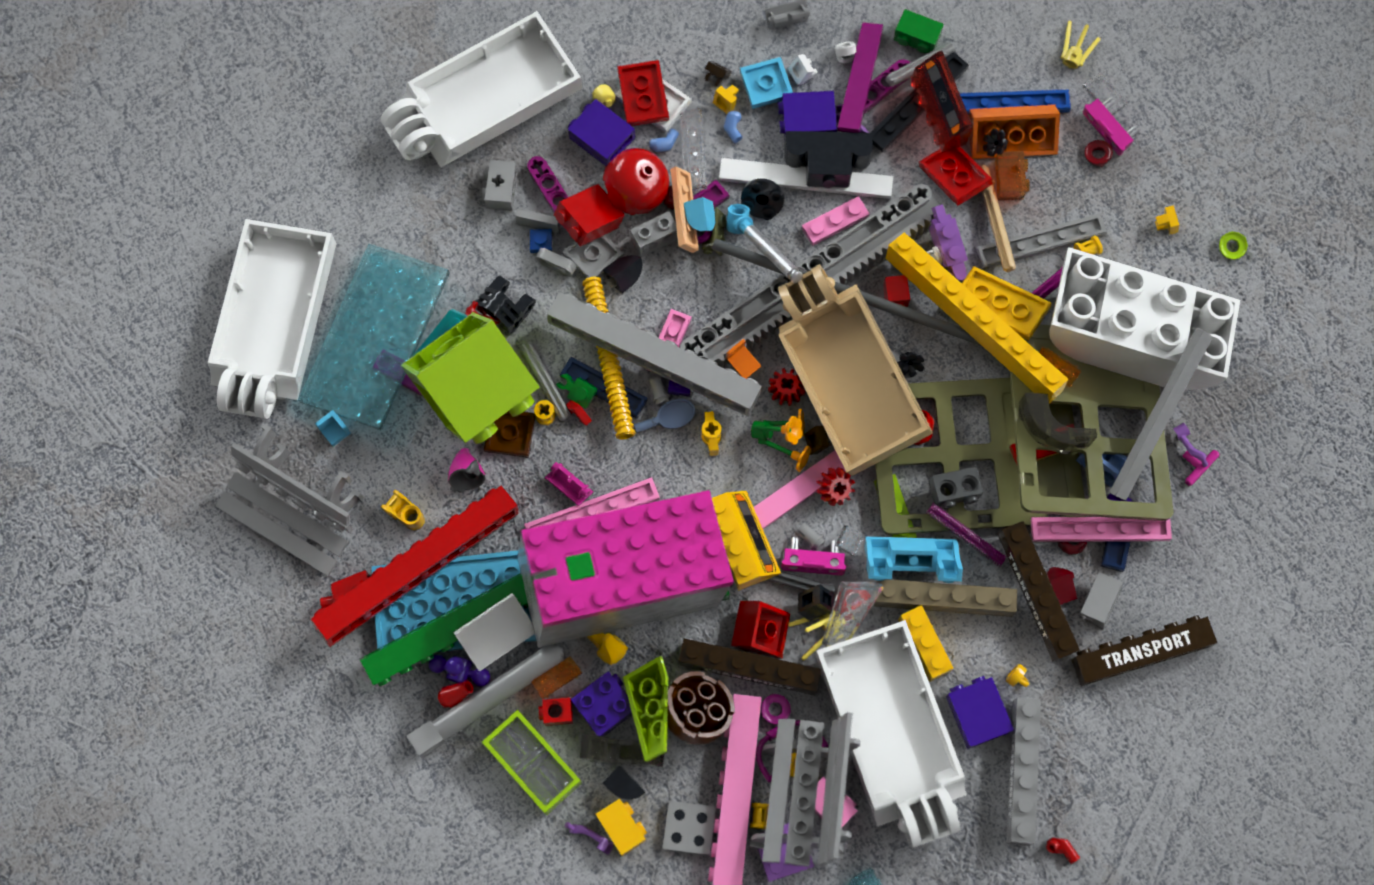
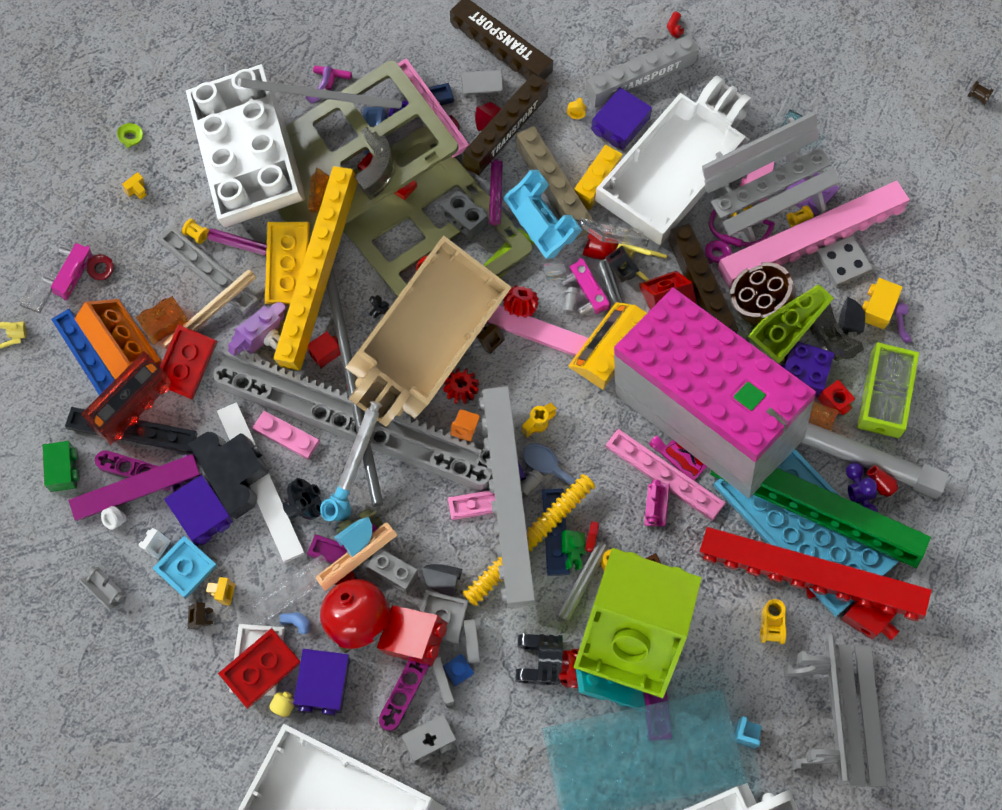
camera: 125 degrees left, 5 degrees down
(465, 472) = (709, 593): dark grey hat -> none
(495, 632) = (818, 476): white tile -> none
(731, 121) = (244, 574): medium blue arm -> none
(793, 430) = (512, 379): plant -> none
(907, 71) = (94, 444): light grey axle -> none
(995, 143) = (143, 343): black plant -> none

